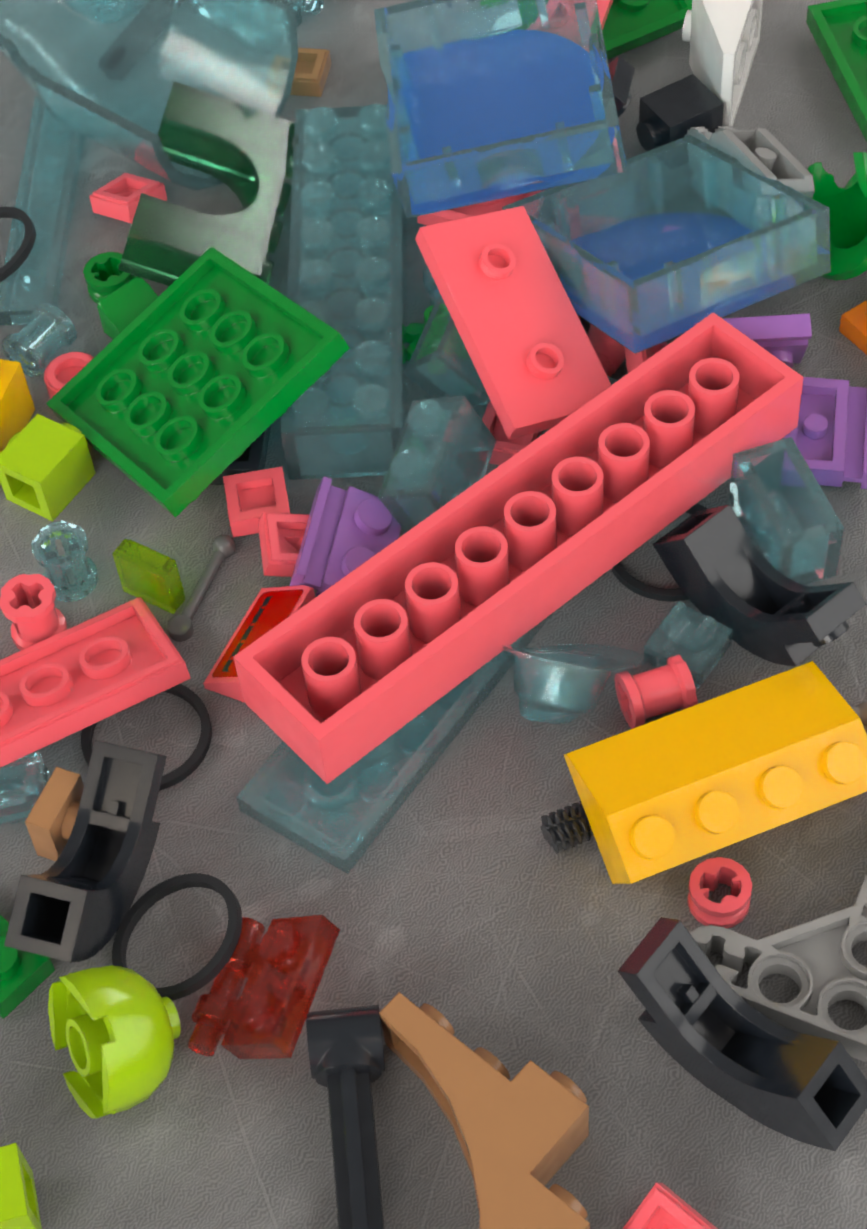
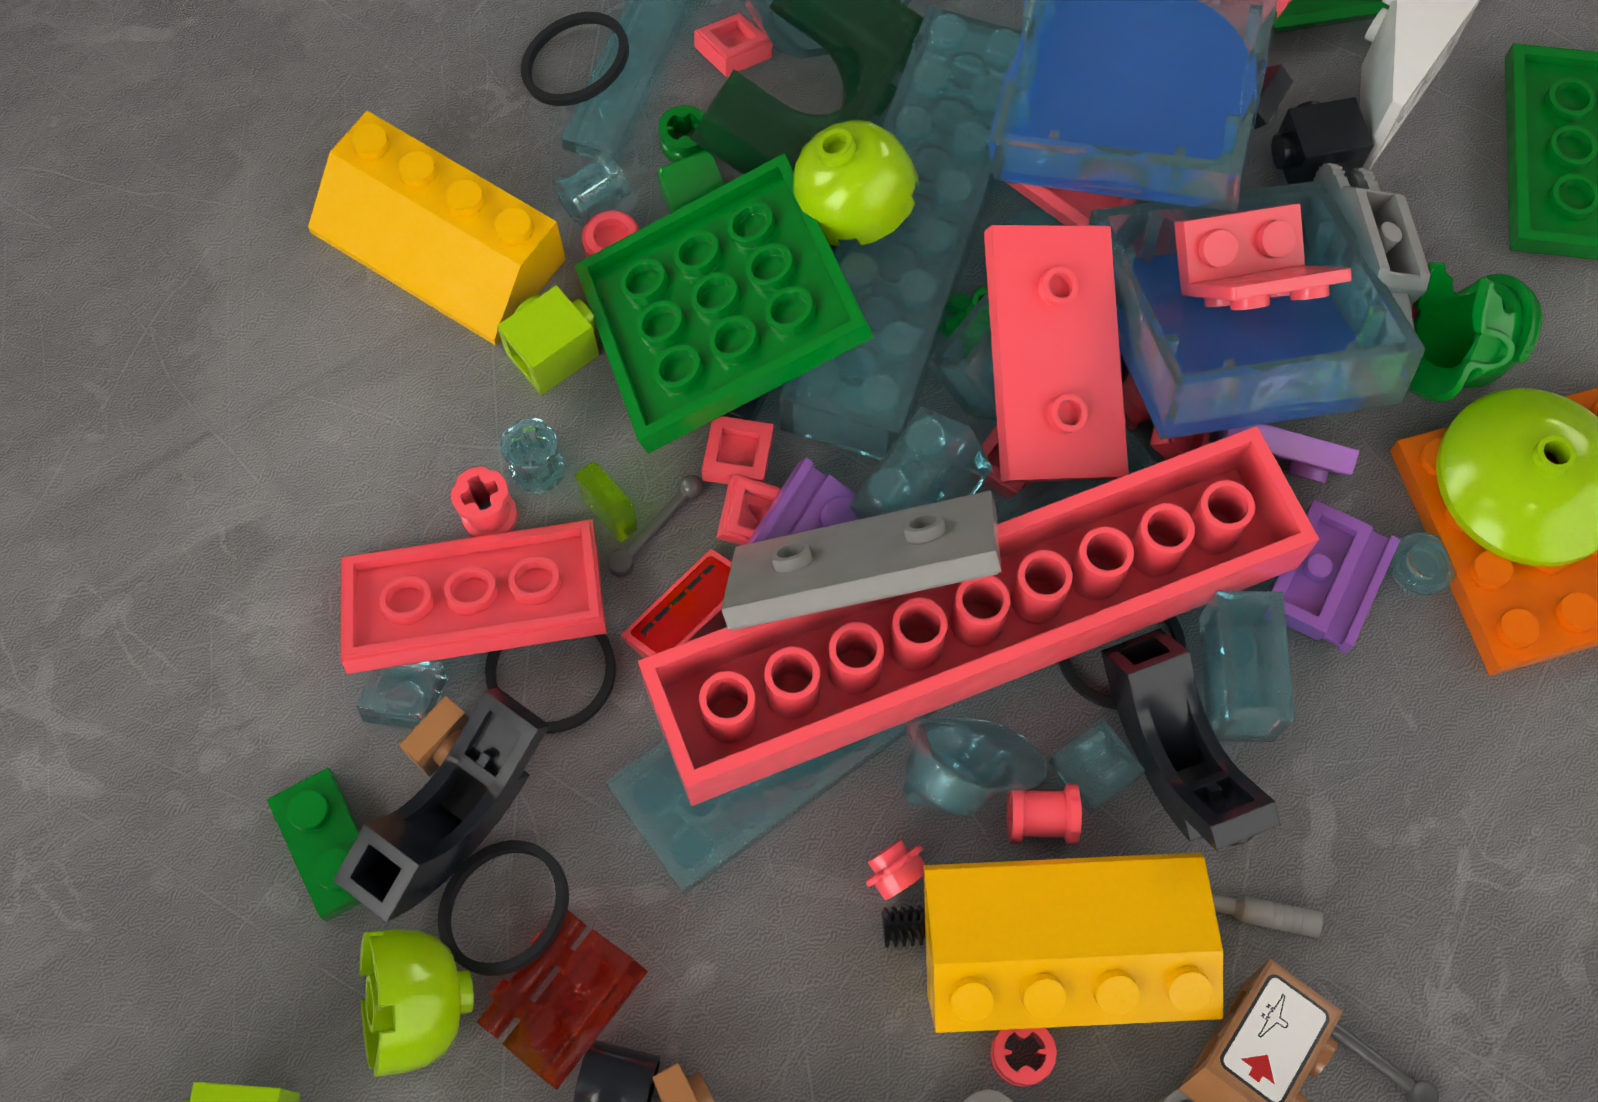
camera: 15 degrees right, 15 degrees up
(284, 241) = (855, 181): none -> lime cylinder
(449, 488) = (863, 561): none -> light grey plate
(539, 780) = (895, 869): none -> coral plate
(651, 201) = (1249, 259): none -> coral bracket

